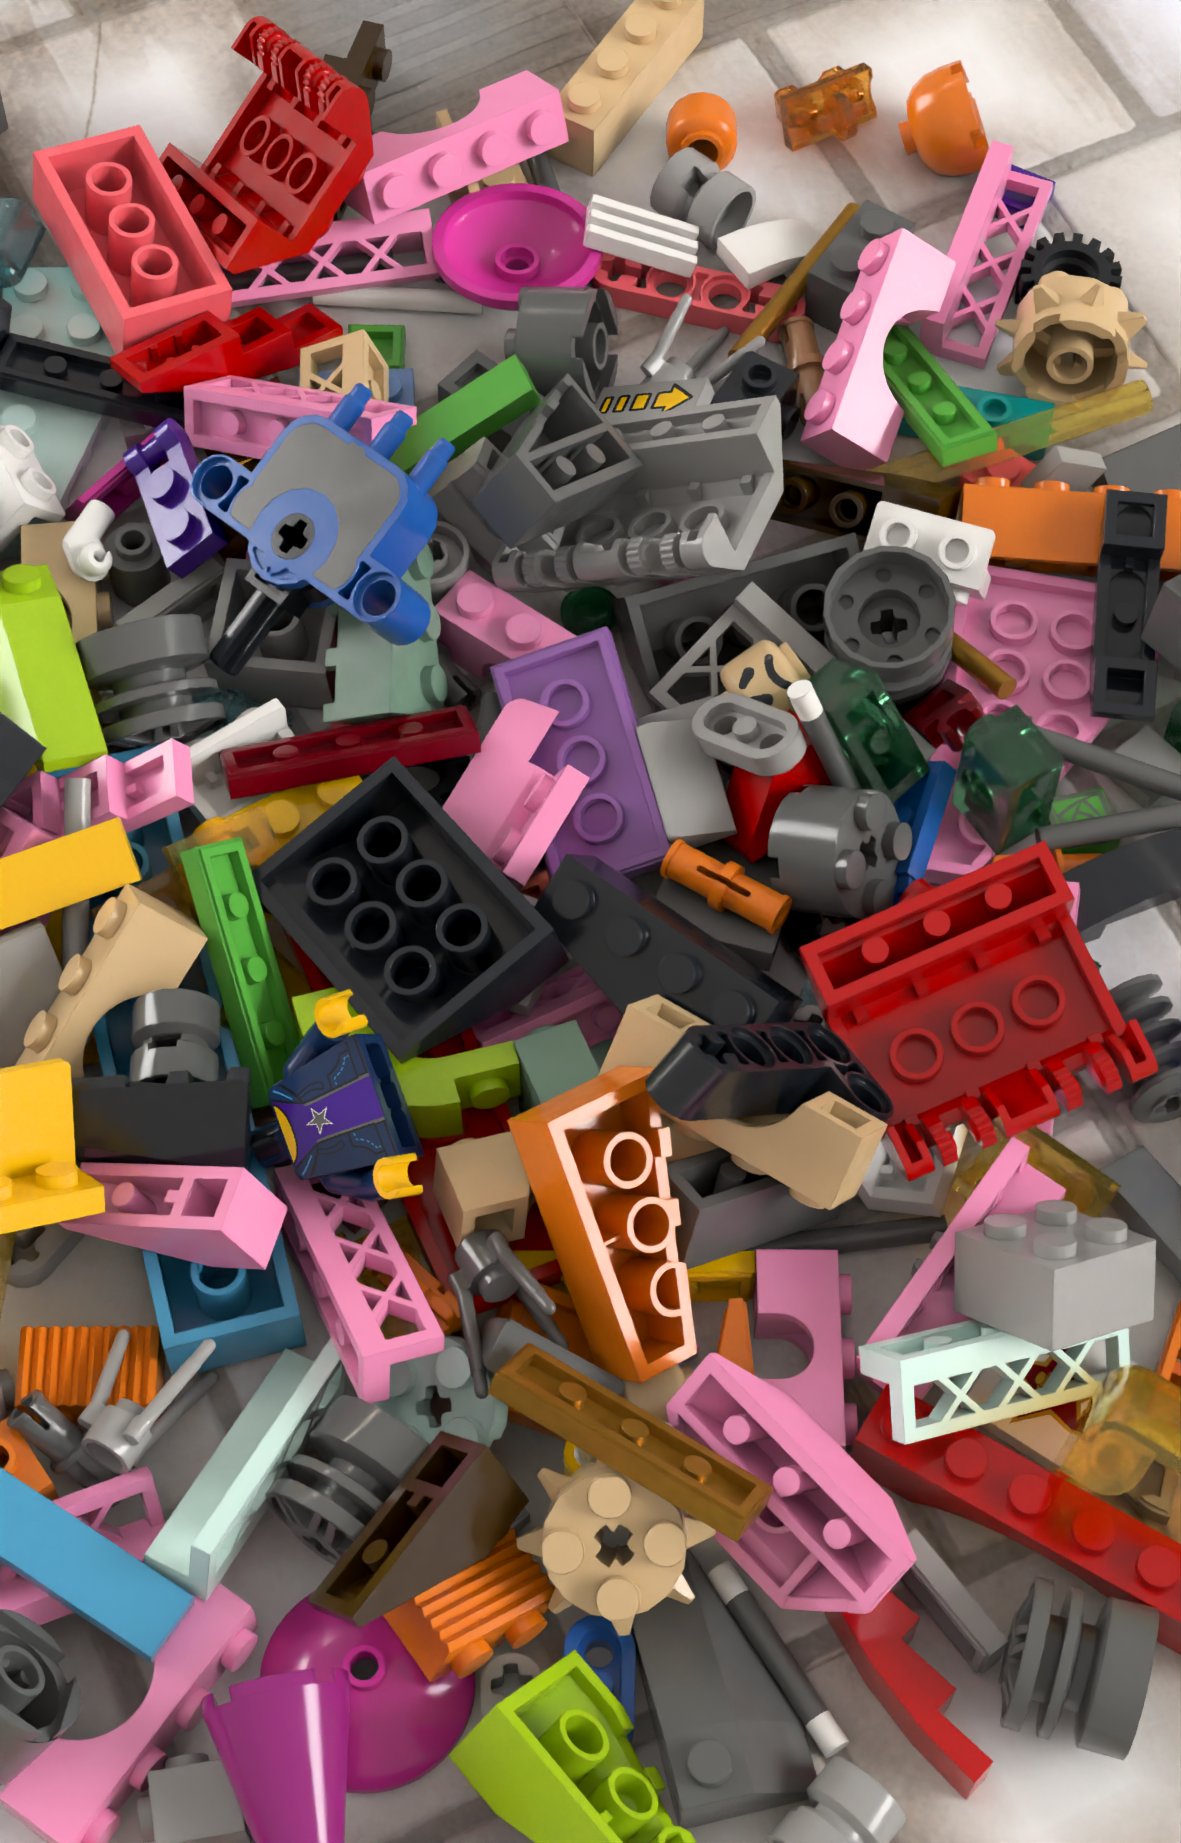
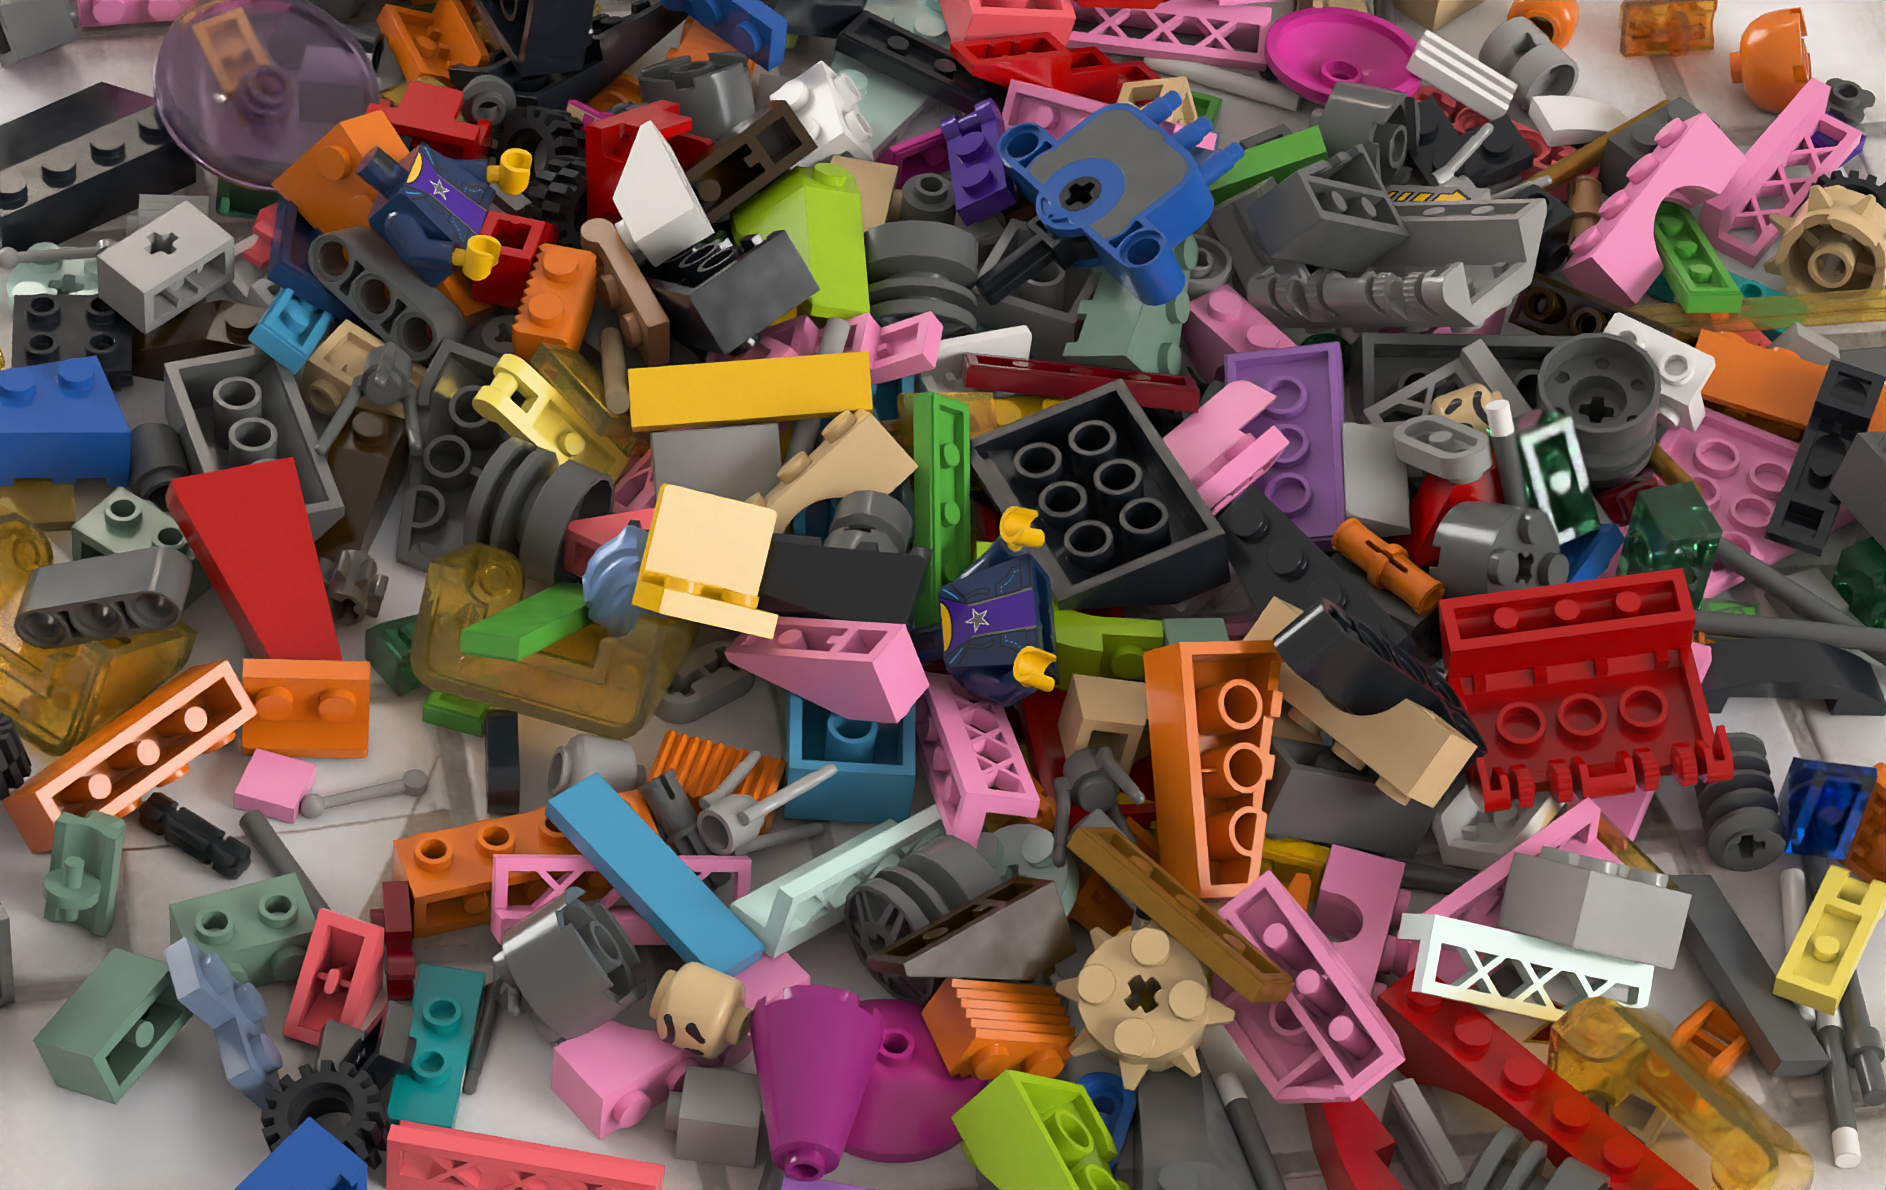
camera: 10 degrees right, 15 degrees down
(83, 542) = (887, 176): white arm -> none
(145, 1709) = (700, 1010): none -> tan head
(643, 323) = (1496, 159): none -> black plate
(1028, 143) = (1848, 101): none -> dark grey plate

